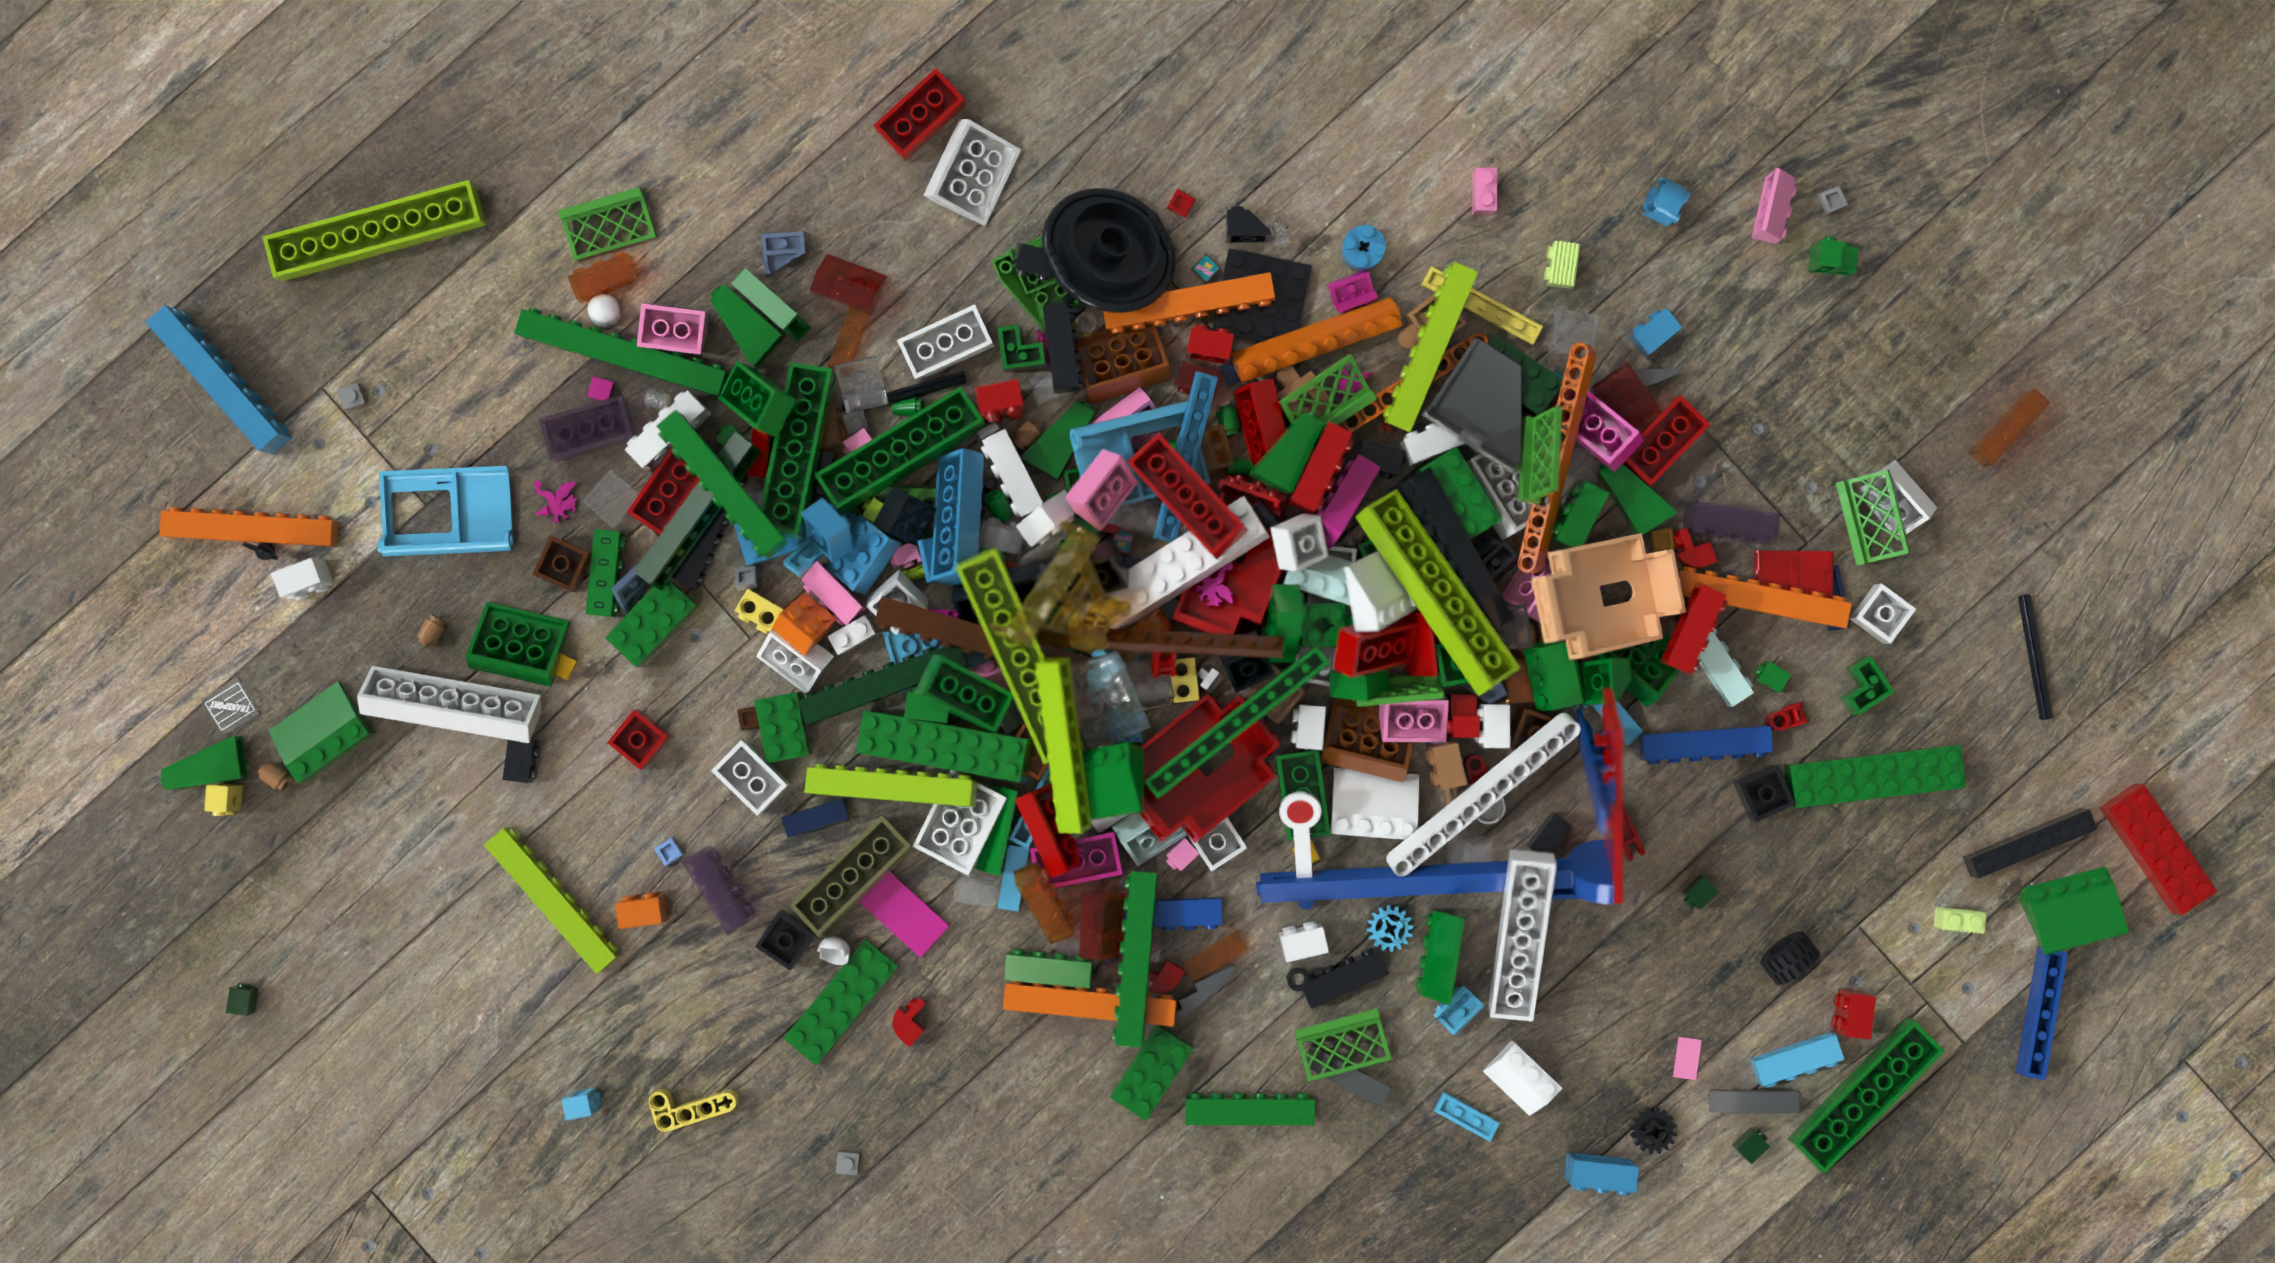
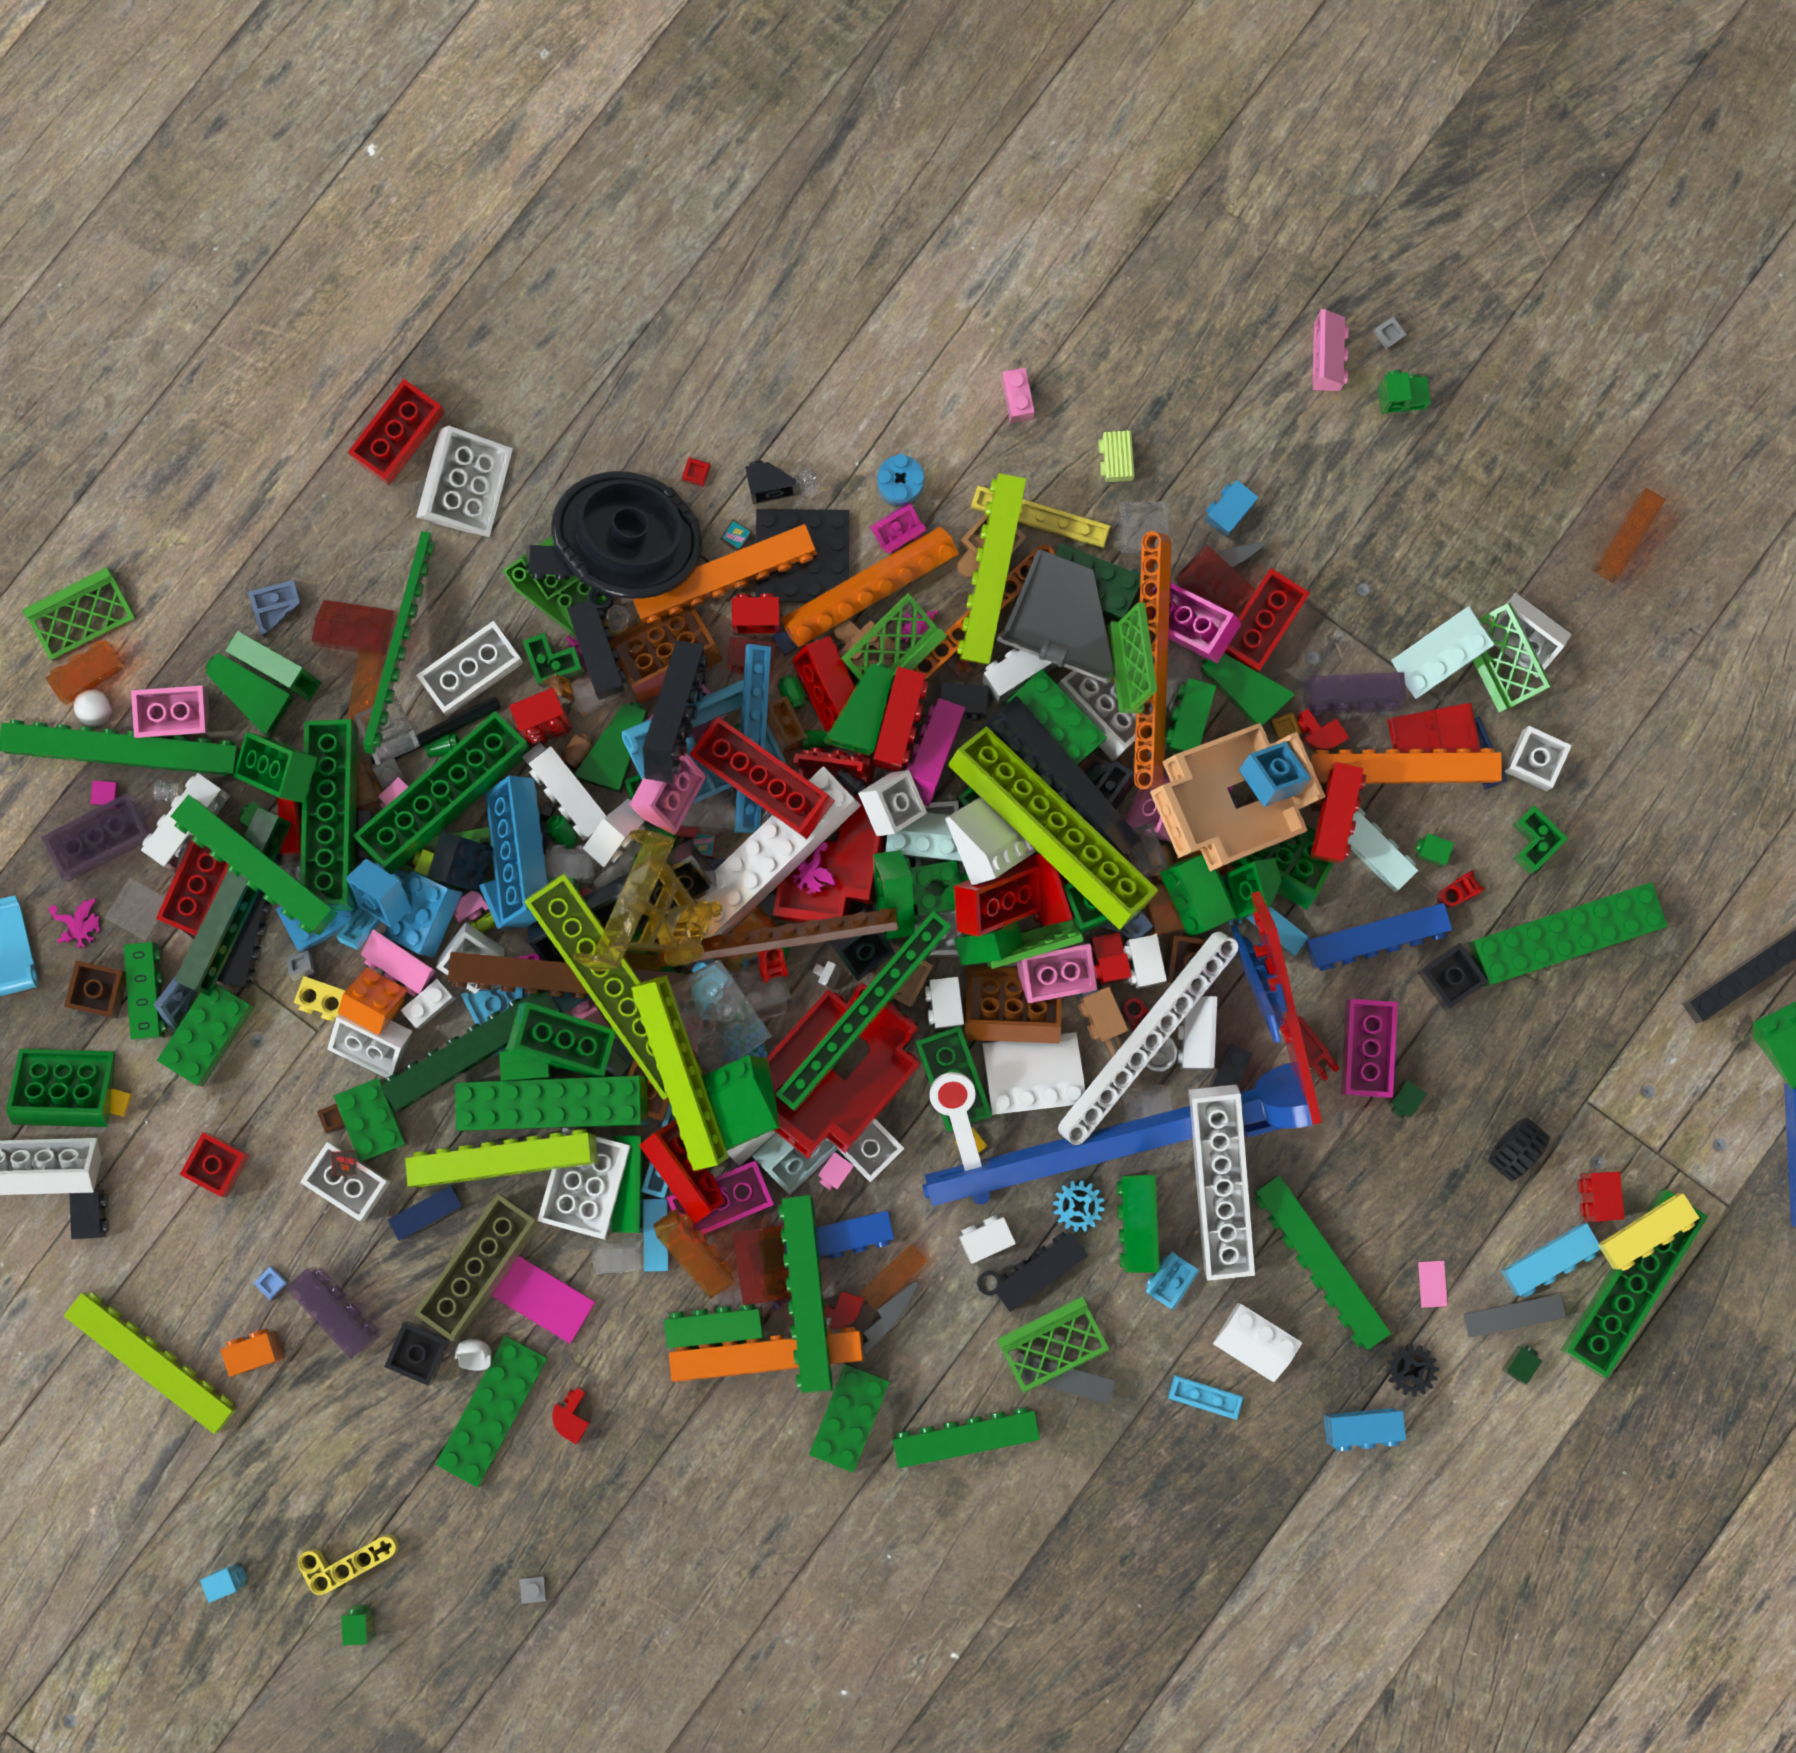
camera: 15 degrees left, 5 degrees down
(690, 1164) = (357, 1625): none -> green brick
(753, 762) = (344, 1163): none -> clear red tile
(884, 313) = (397, 651): none -> green plate
(1023, 375) = (561, 685): none -> clear orange slope
(1121, 422) = (675, 712): none -> black brick
(1188, 679) = (804, 979): light yellow brick -> none
(1527, 801) = (1198, 1036): none -> white slope
(1593, 1020) = (1321, 1262): none -> green brick
(1645, 582) = (1274, 774): none -> dark azure brick
(1665, 202) = (1212, 369): dark azure brick -> none
(1676, 842) = (1369, 1048): none -> dark pink brick
(1818, 501) = (1443, 652): none -> light aqua slope
(1890, 1054) = (1648, 1231): none -> light yellow brick
(1960, 920) = (1694, 1072): yellowish green brick -> none
(2035, 657) = (1711, 772): black axle -> none

